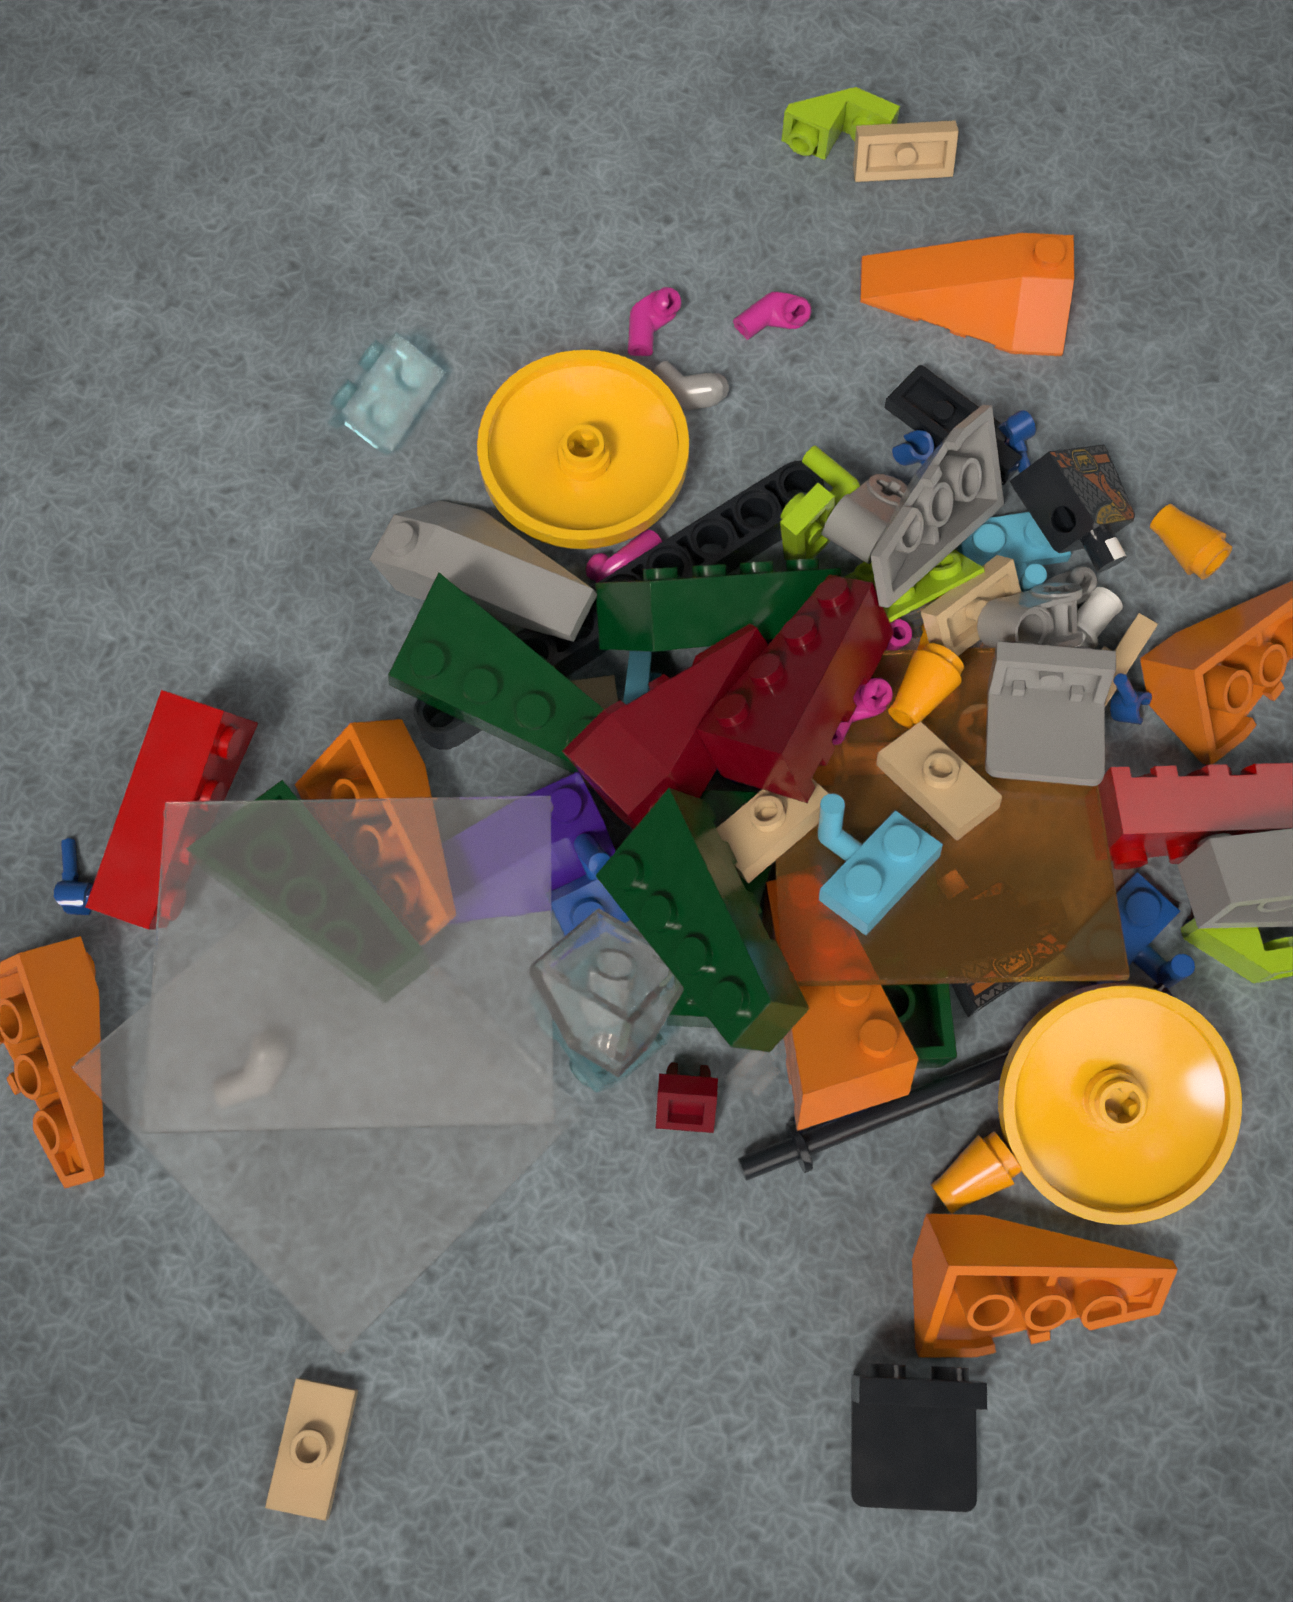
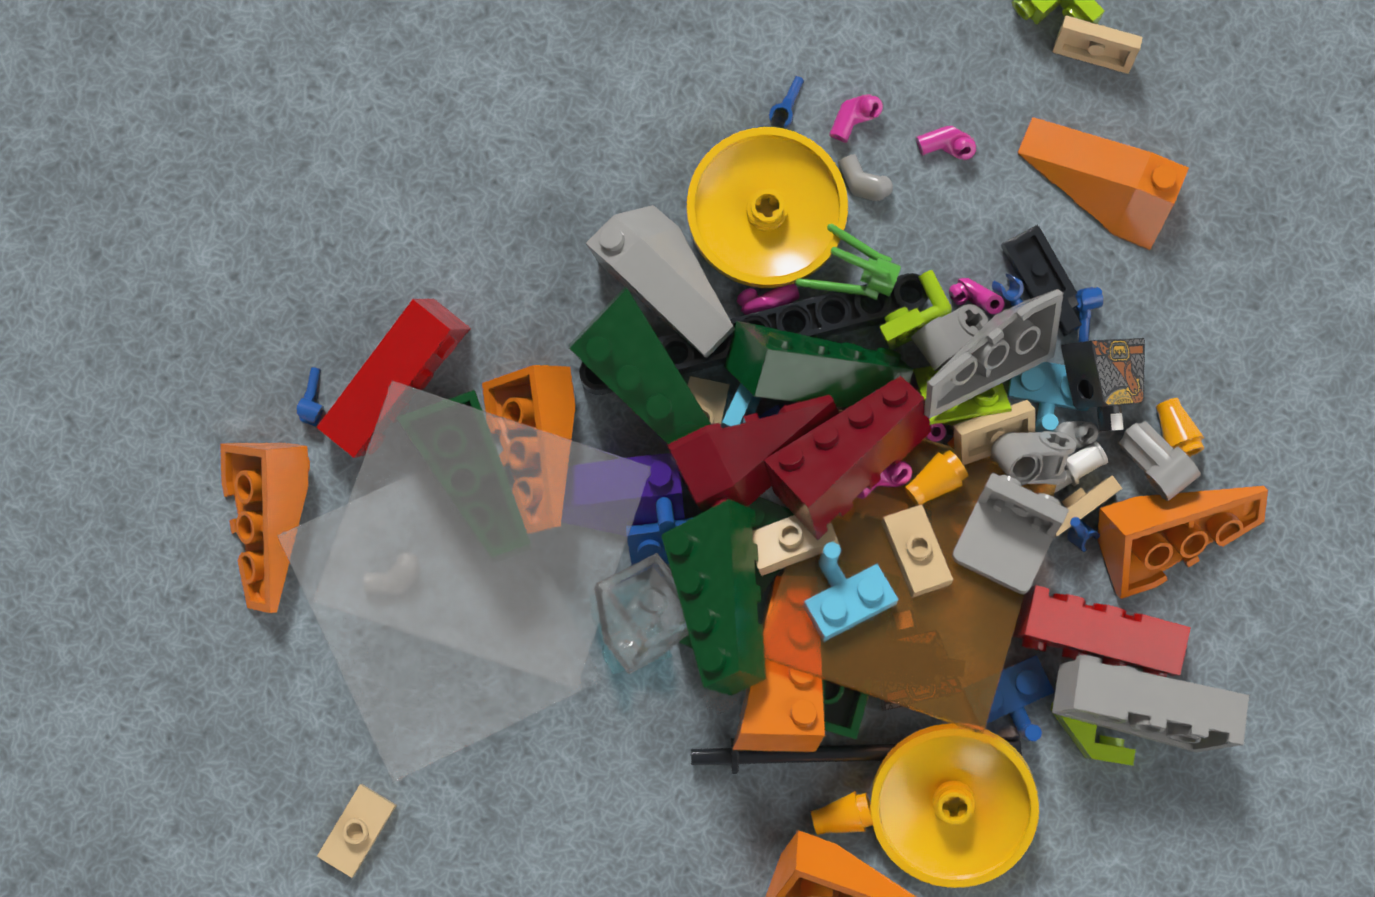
camera: 20 degrees right, 10 degrees up
(387, 392) = (640, 107): clear light blue bracket -> none
(563, 334) = (788, 101): none -> blue hand
(686, 1100) = (671, 699): dark red tile -> none
(751, 469) = (878, 271): none -> bright green plant
(898, 465) = (978, 295): none -> dark pink arm
(1199, 583) = (1164, 467): none -> light grey piece

